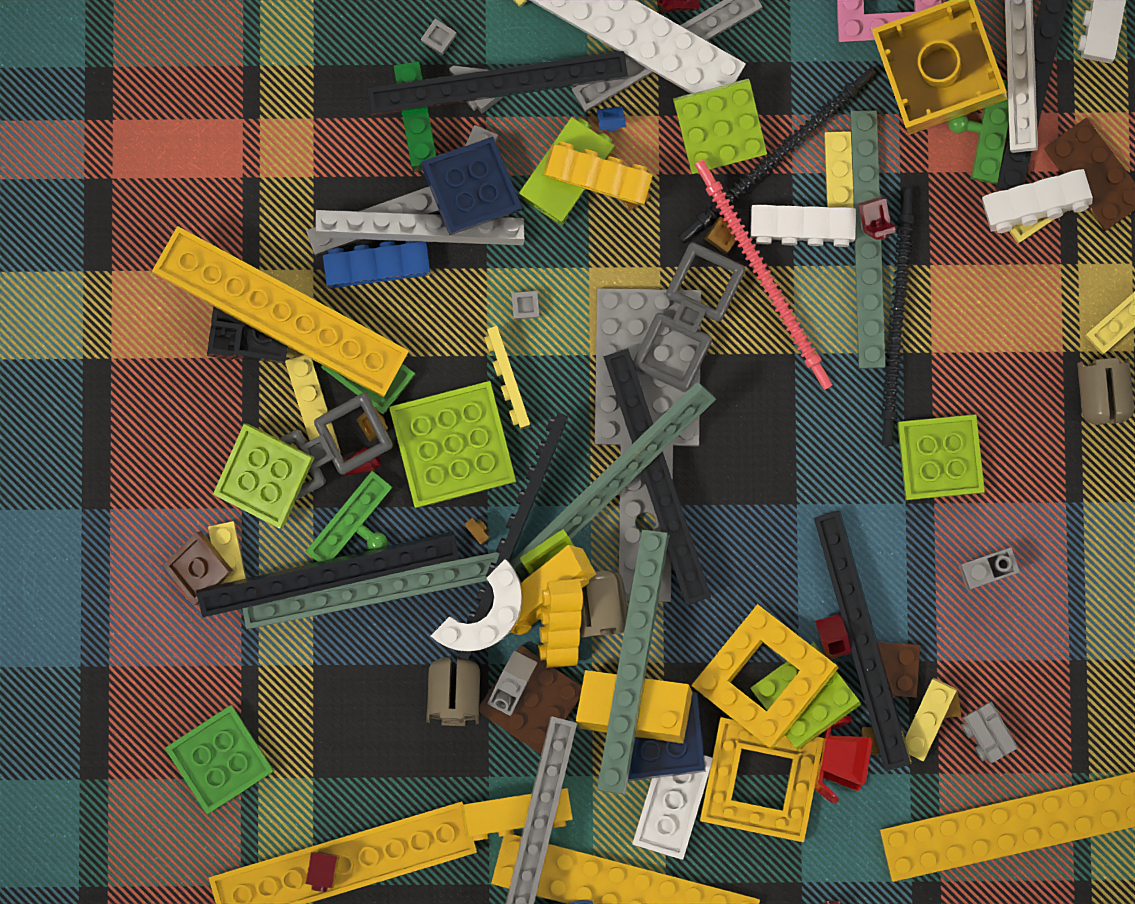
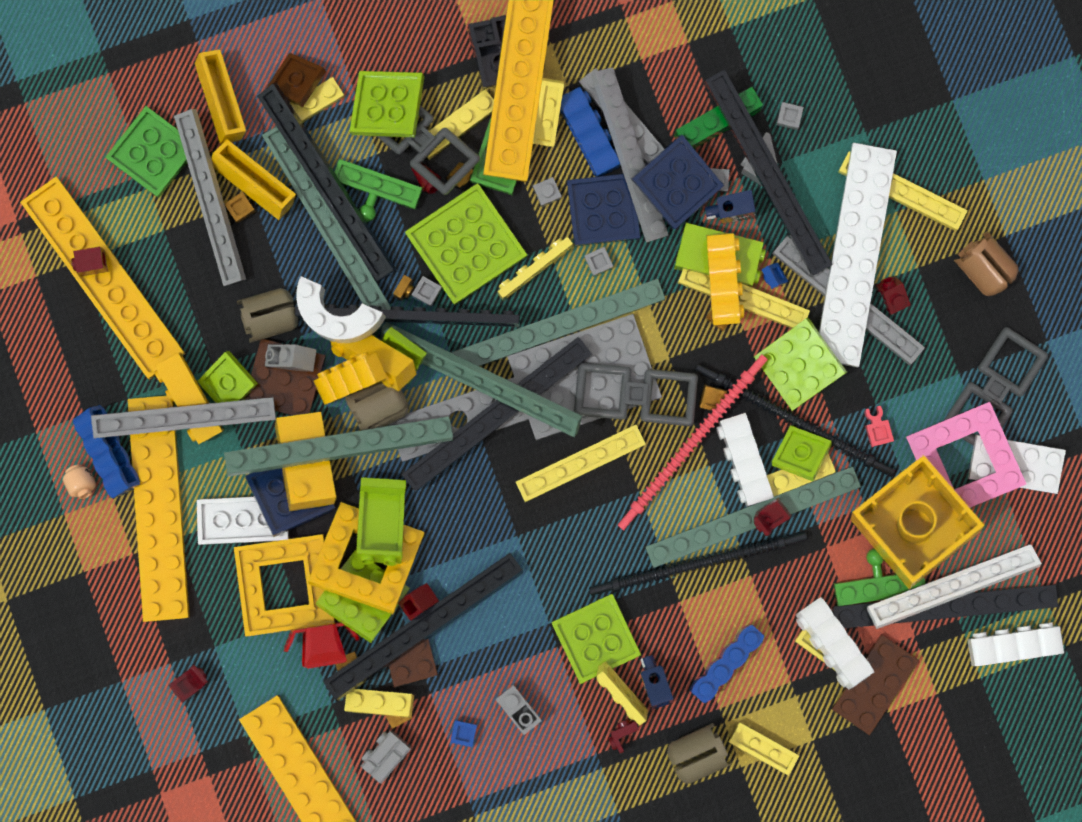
camera: 65 degrees right, 0 degrees up
(186, 660) = (220, 96): none -> yellow brick
(294, 656) = (253, 179): none -> yellow brick
(297, 711) = (210, 197): none -> light grey plate
(319, 682) = (239, 207): none -> pearl gold plate
(339, 298) = (548, 112): none -> light yellow plate
(425, 334) = (547, 192): none -> light grey plate
(469, 281) = (602, 210): none -> dark blue plate
(490, 506) = (426, 291): none -> light grey plate
(511, 763) = (227, 380): none -> lime plate
(520, 124) = (742, 206): none -> dark blue torso
(580, 370) = (563, 324): none -> sand green plate
(631, 151) = (752, 300): none -> light yellow plate
(730, 646) = (380, 521): none -> lime panel
(742, 405) = (580, 463): none -> light yellow plate
(818, 160) = (801, 453): none -> lime plate
(823, 68) = (878, 431): none -> coral plate
(993, 639) = (463, 733): none -> blue plate
(1011, 450) = (621, 693): none -> light yellow plate
(1021, 331) = (731, 658): none -> blue brick
(1025, 409) = (659, 693): none -> dark blue torso
(1050, 461) = (624, 728): none -> dark red bracket

